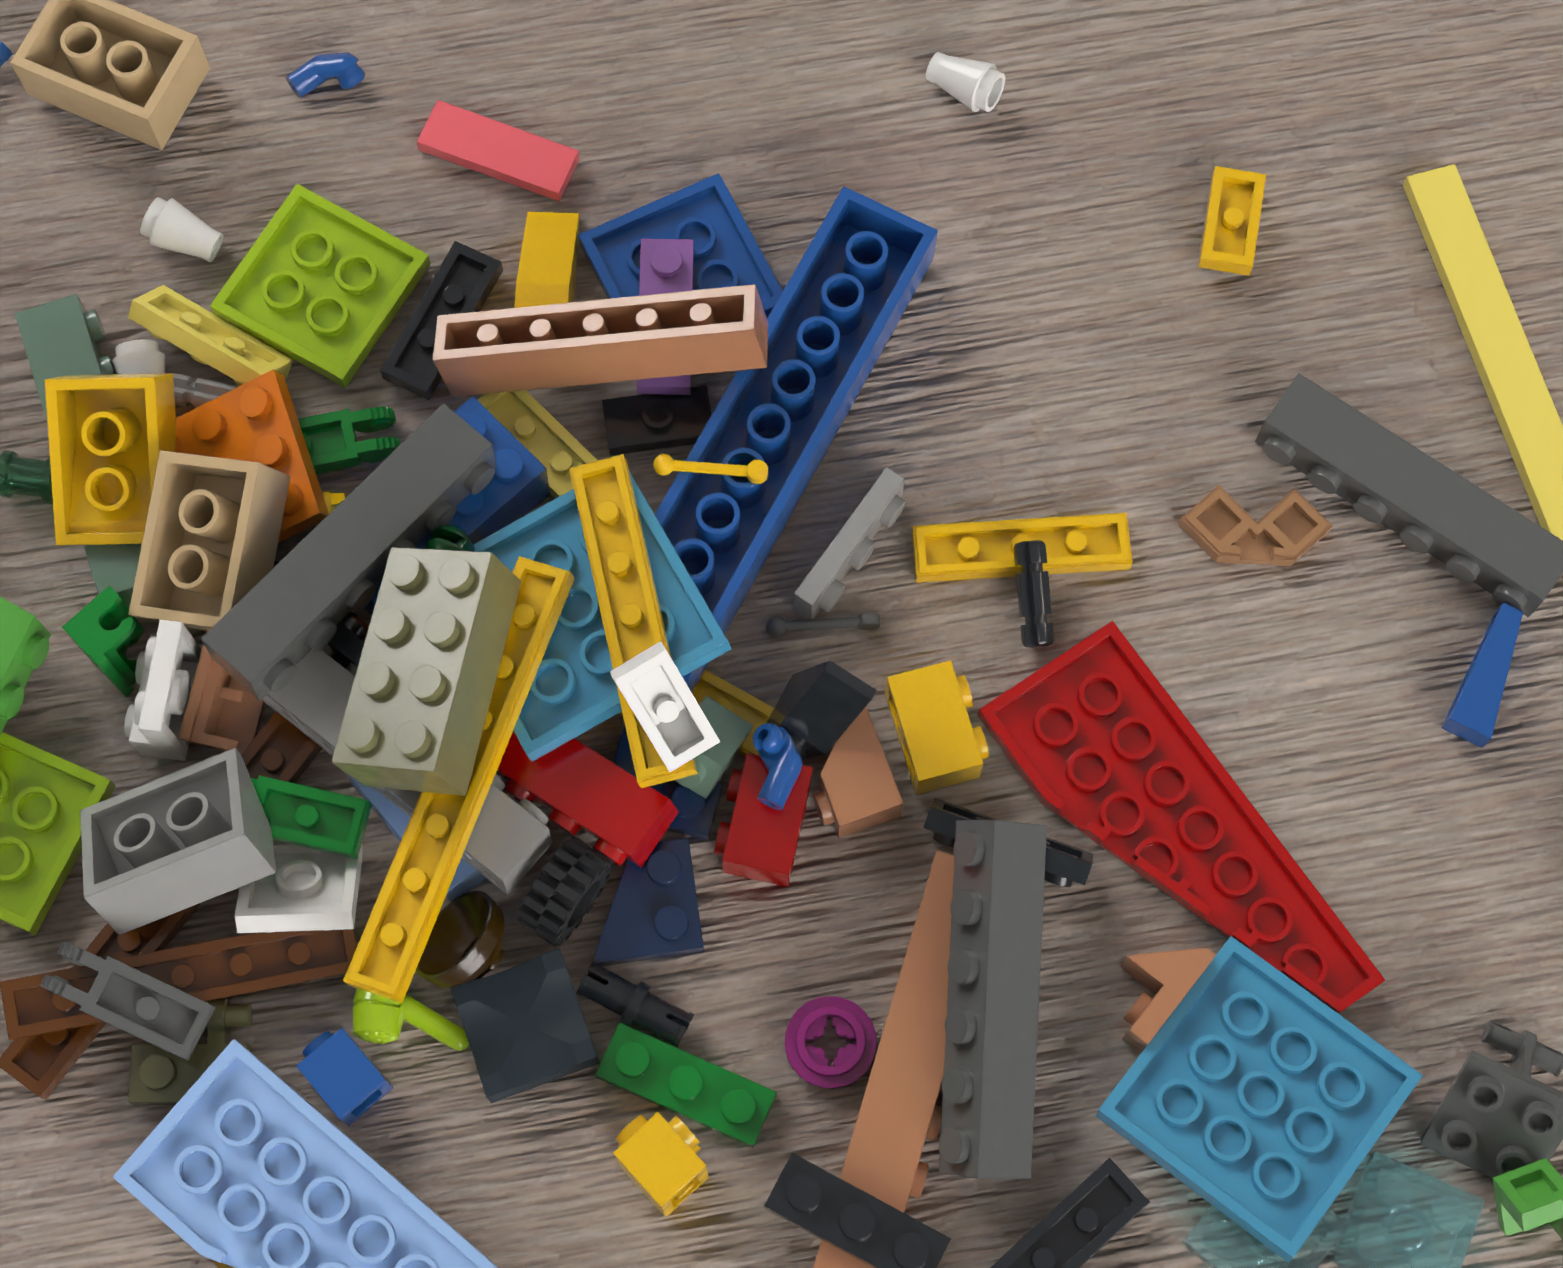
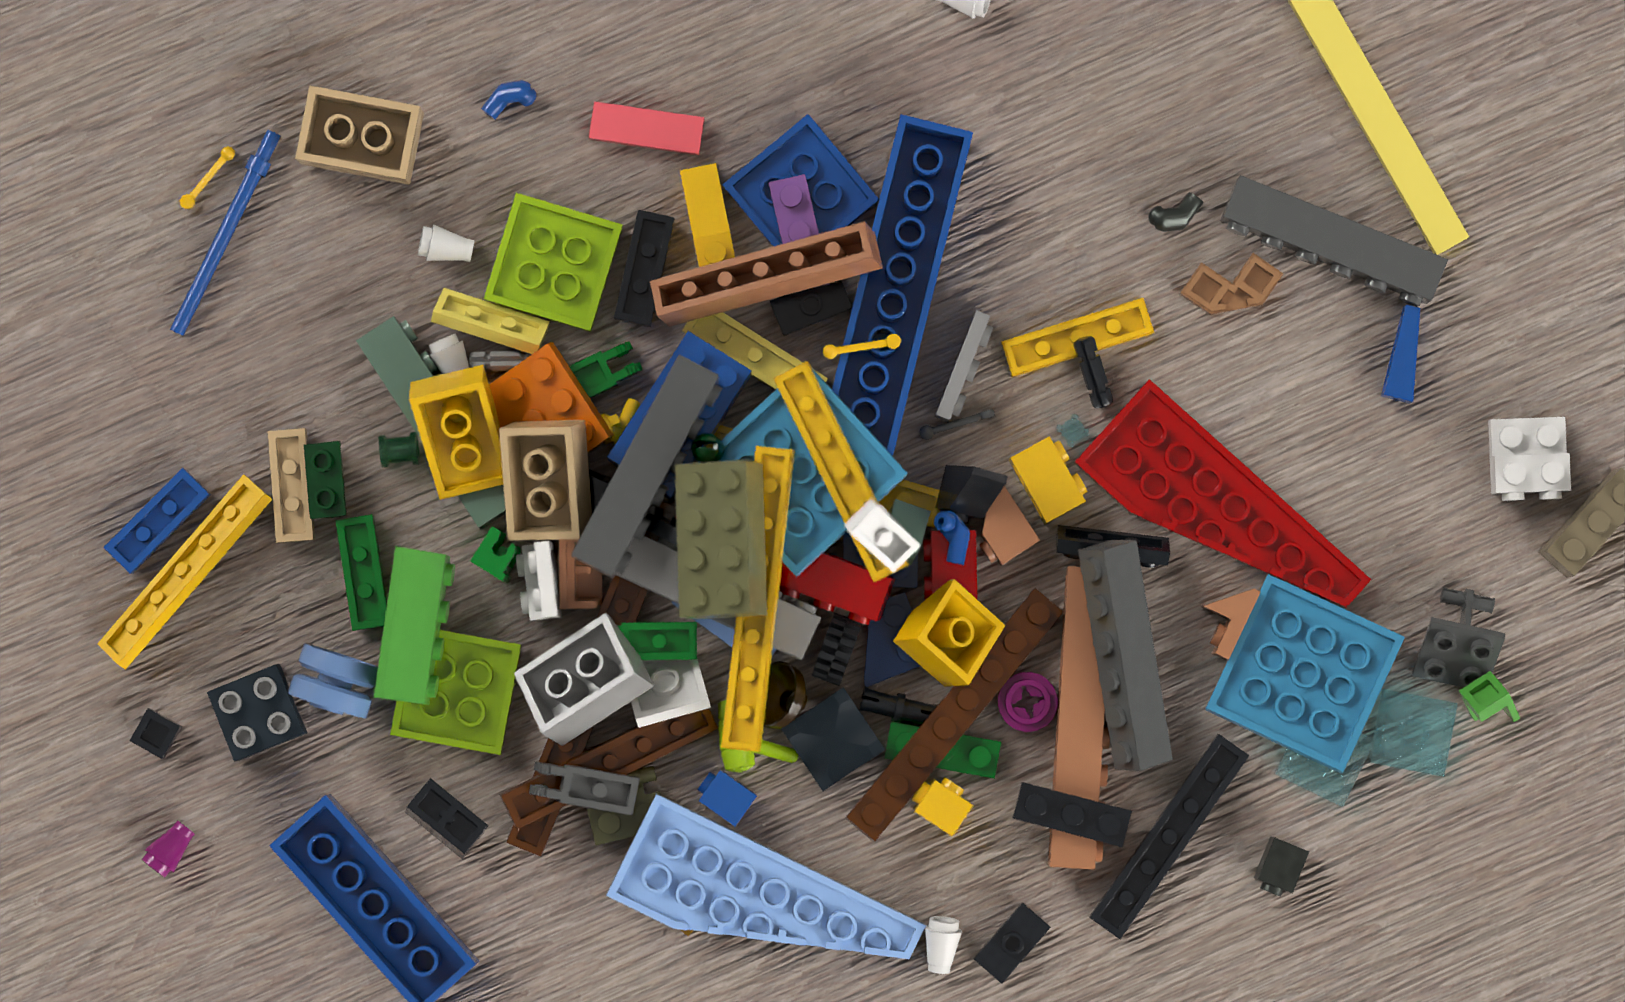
camera: 10 degrees left, 15 degrees up
(709, 1034) = (953, 717): none -> reddish brown plate
(737, 907) = (950, 634): none -> yellow slope
(986, 670) = (1072, 430): none -> clear light blue piece
(1193, 419) = (1175, 218): none -> pearl dark grey arm
(1232, 220) = (1173, 62): yellow plate -> none

